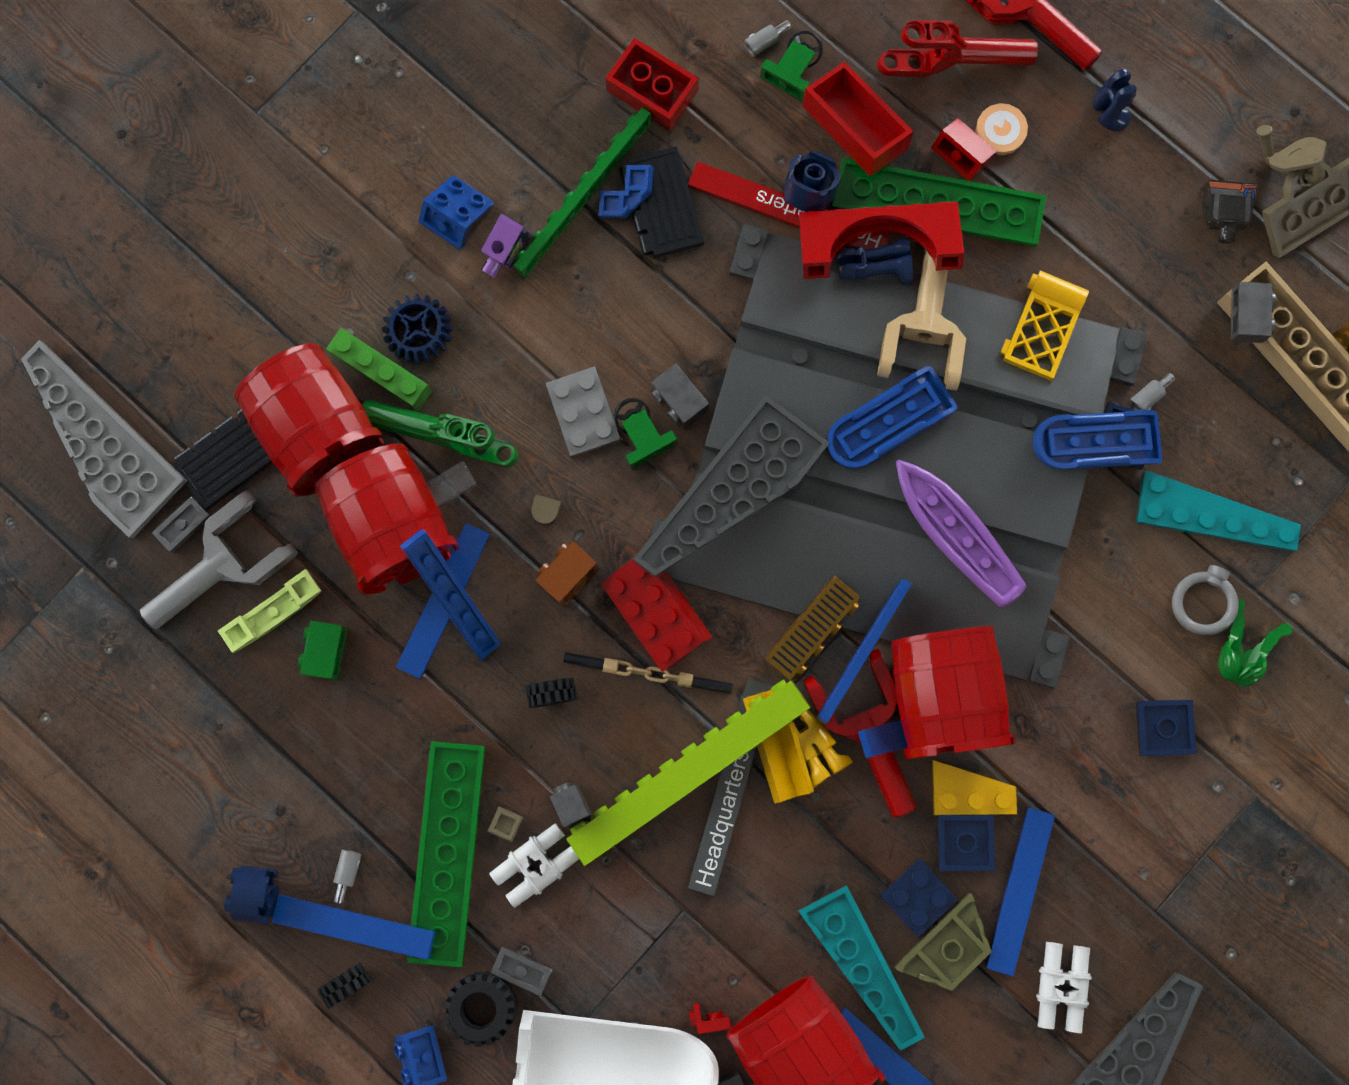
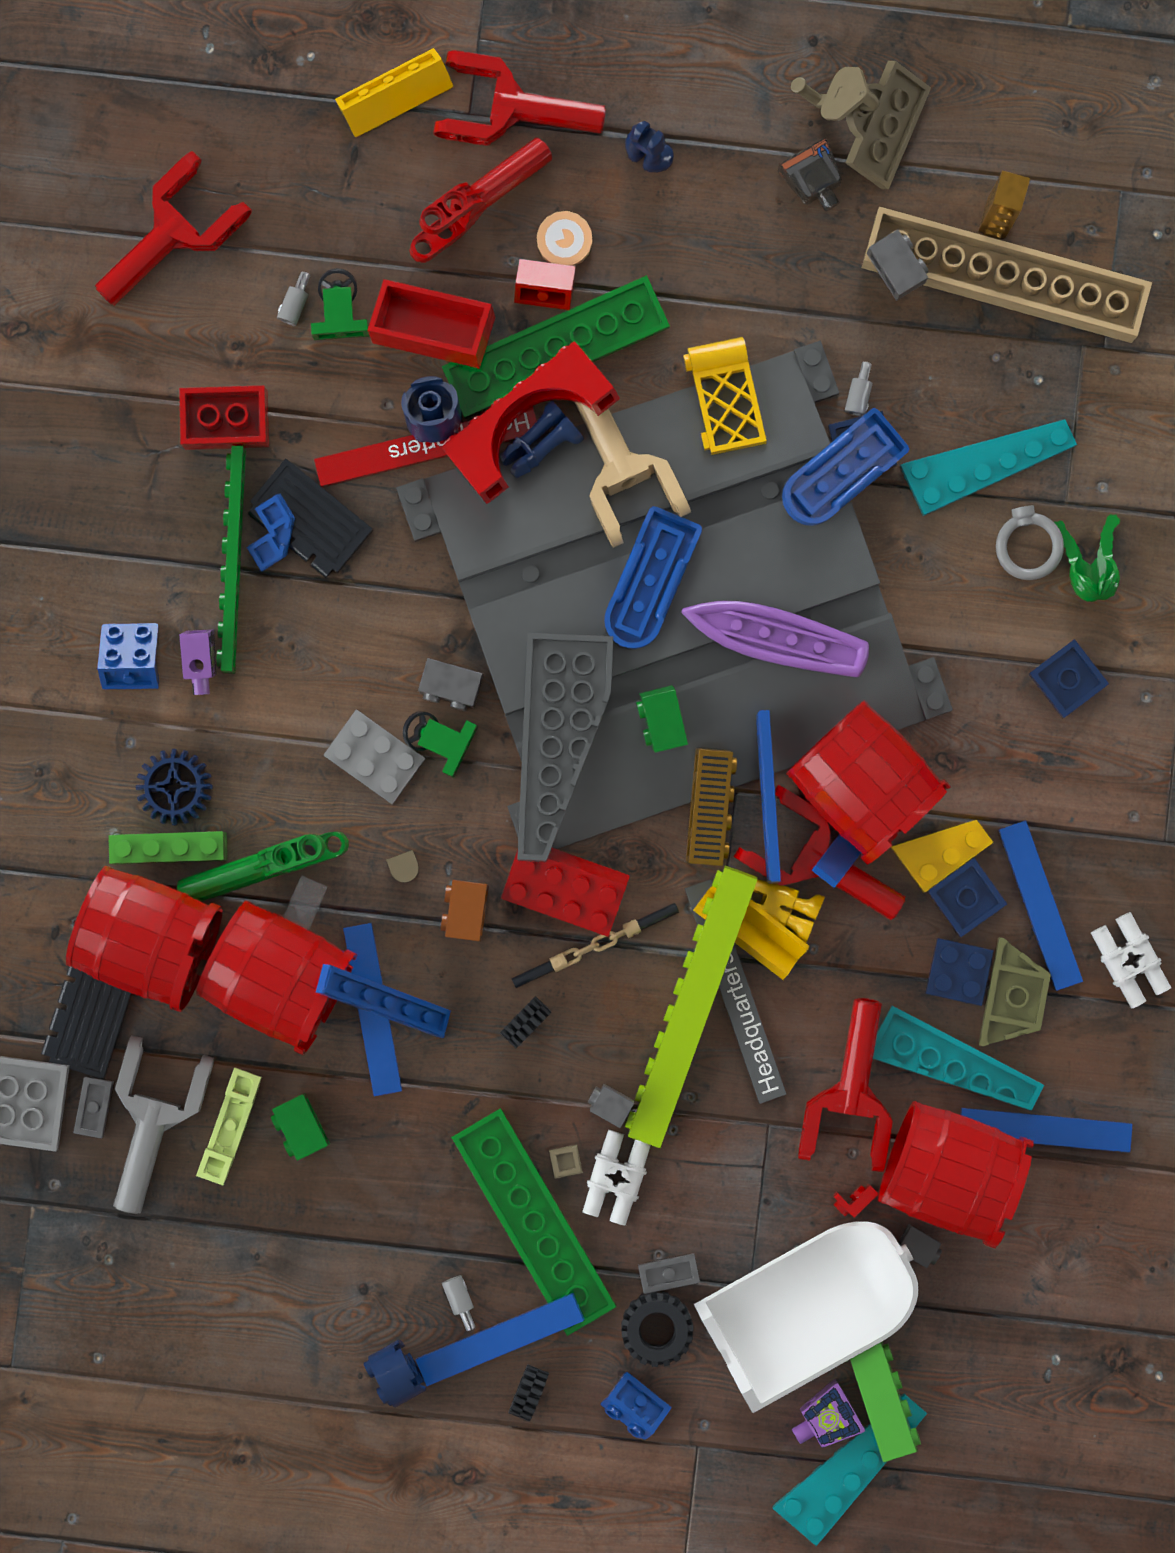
camera: 40 degrees left, 5 degrees up
(767, 931) = (853, 1092): none -> red piece
(823, 533) = (662, 718): none -> green brick

